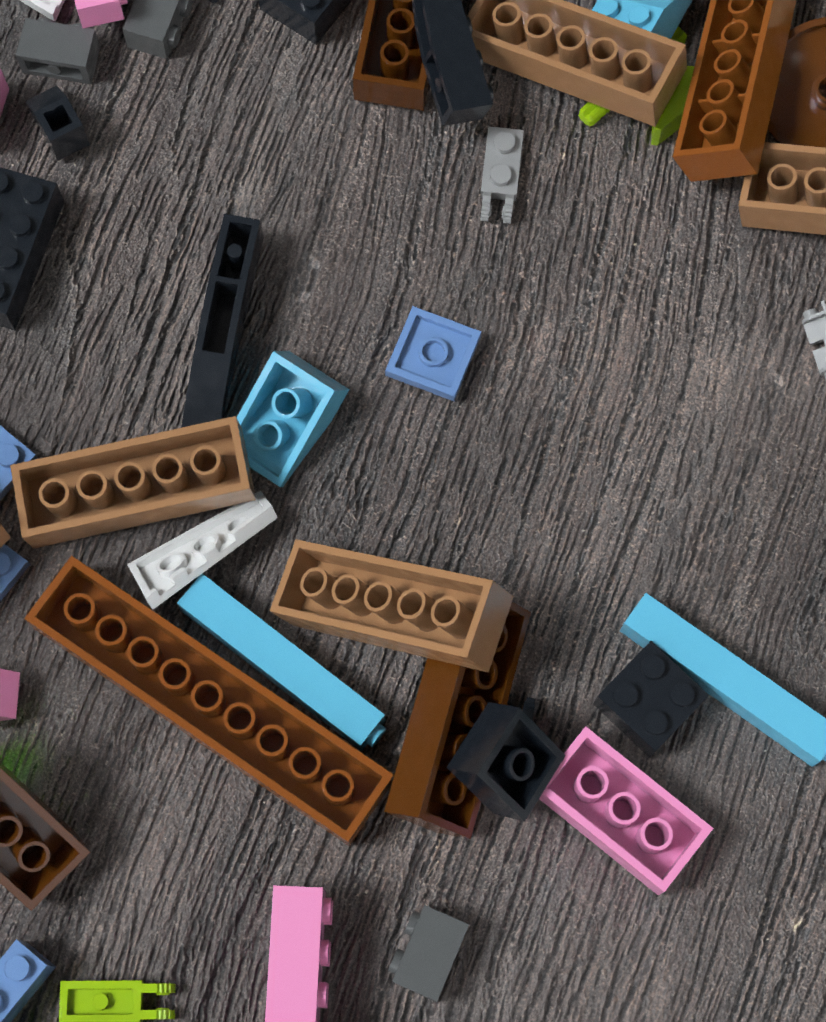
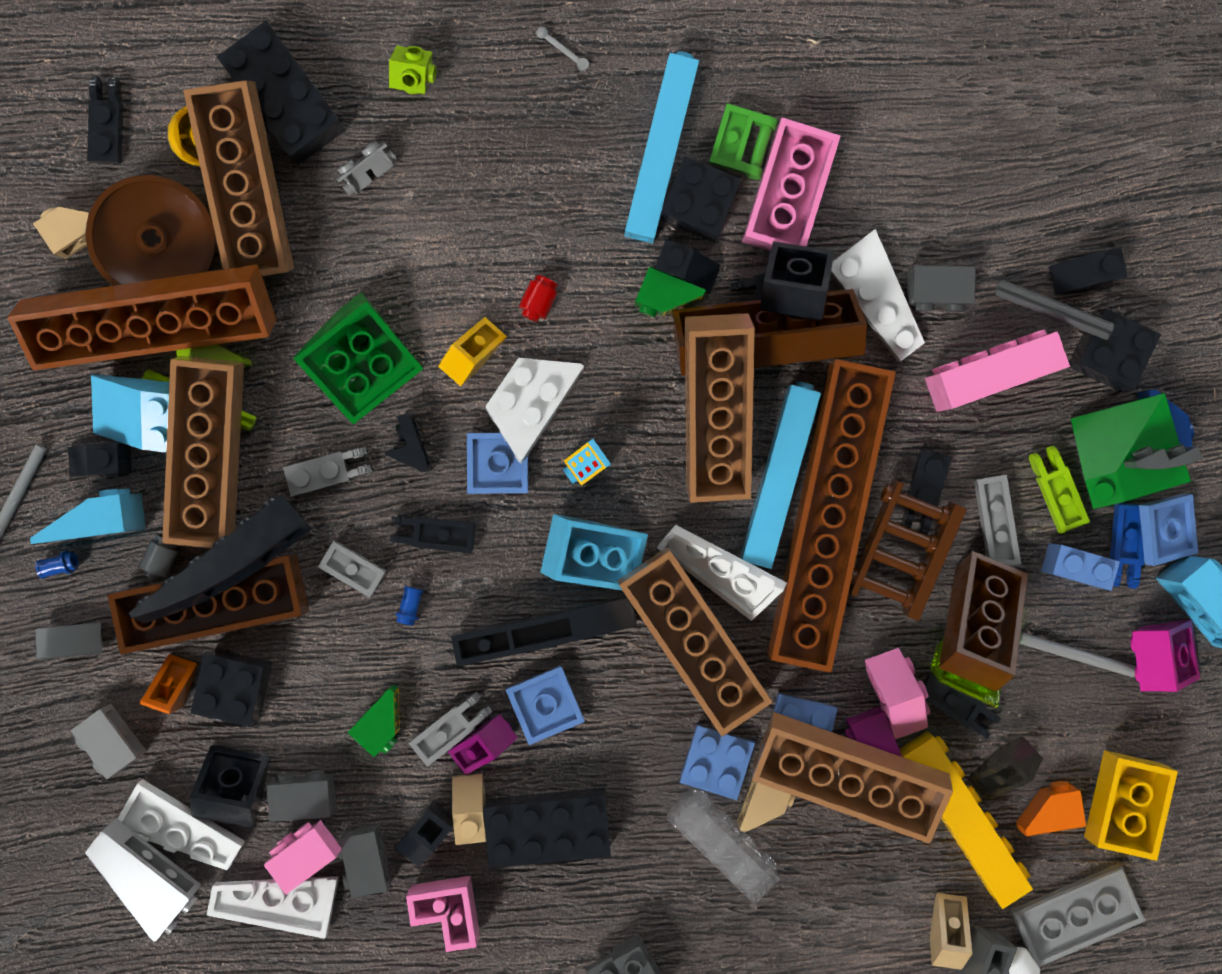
camera: 115 degrees left, 15 degrees up
(75, 178) = (467, 808): none -> tan slope
(112, 907) = (997, 519): none -> light grey plate
(119, 811) = (924, 572): none -> reddish brown fence
(125, 218) = (483, 744): none -> magenta slope
(137, 299) = (545, 704): none -> medium blue plate
(157, 186) = (447, 731): none -> light grey hinge
(190, 835) = (926, 485): none -> black hinge
(199, 120) = (379, 724): none -> green slope
(313, 200) = (409, 606): none -> blue pin
(381, 158) = (352, 569): none -> light grey plate
(381, 259) = (437, 534): none -> black hinge
(392, 448) = (585, 463): none -> medium azure slope
(452, 873) = (879, 295): none -> white wing
(481, 269) = (414, 453): none -> black slope
(489, 414) = (530, 400): none -> white wing
(554, 613) = (663, 293): none -> green slope
(573, 374) = (471, 351): none -> yellow slope
(575, 653) = (687, 265): none -> black slope
(604, 470) = (538, 298): none -> red brick
(613, 249) = (357, 359): none -> green slope
(712, 773) = (733, 138): none -> bright green plate

